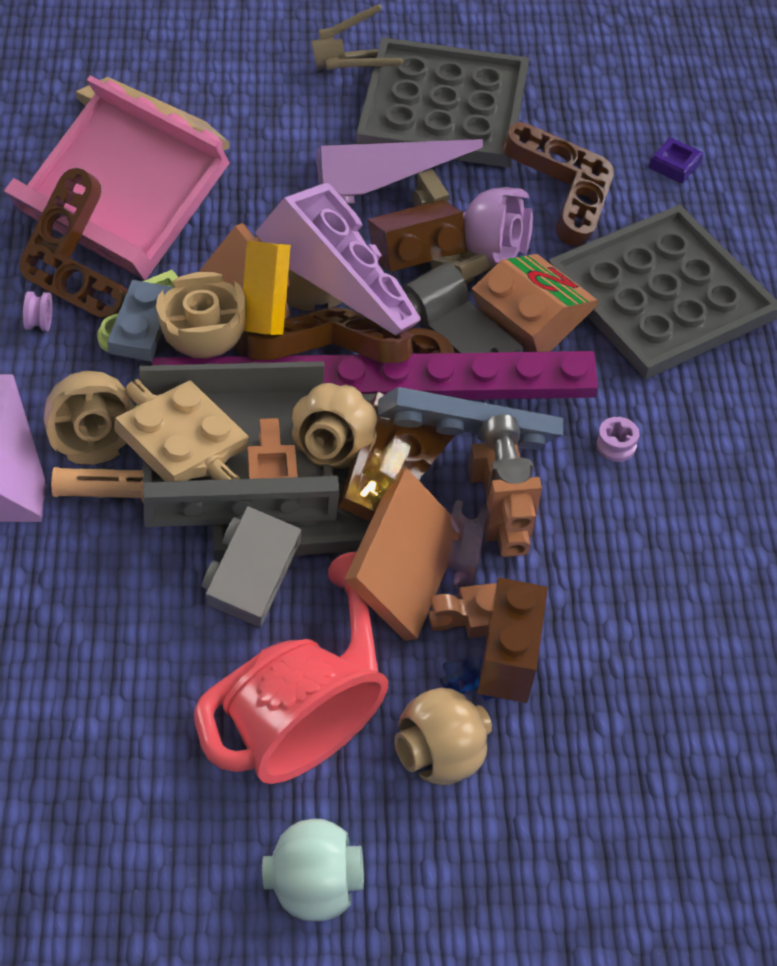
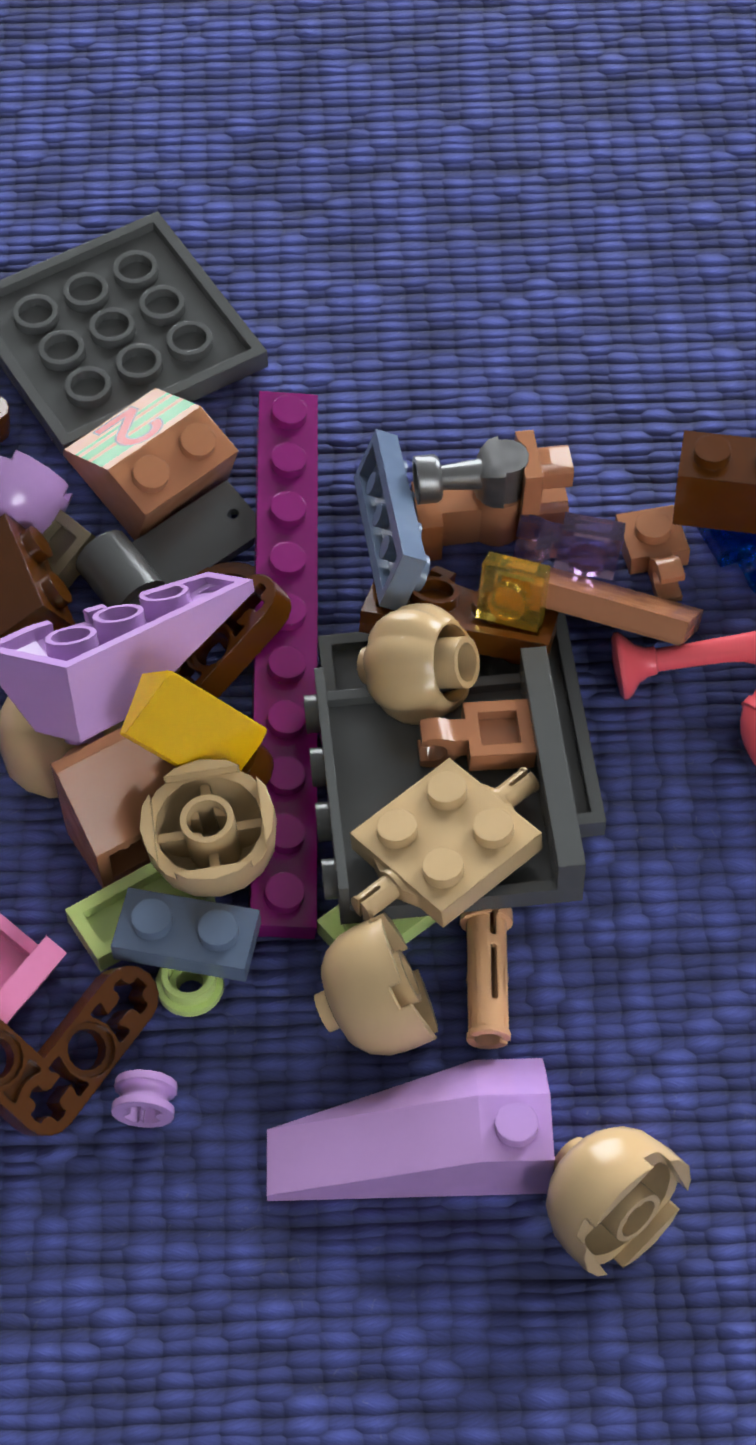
camera: 85 degrees left, 5 degrees up
(252, 566) = (644, 763): light grey brick -> none
(625, 431) = (372, 413): lavender bush -> none

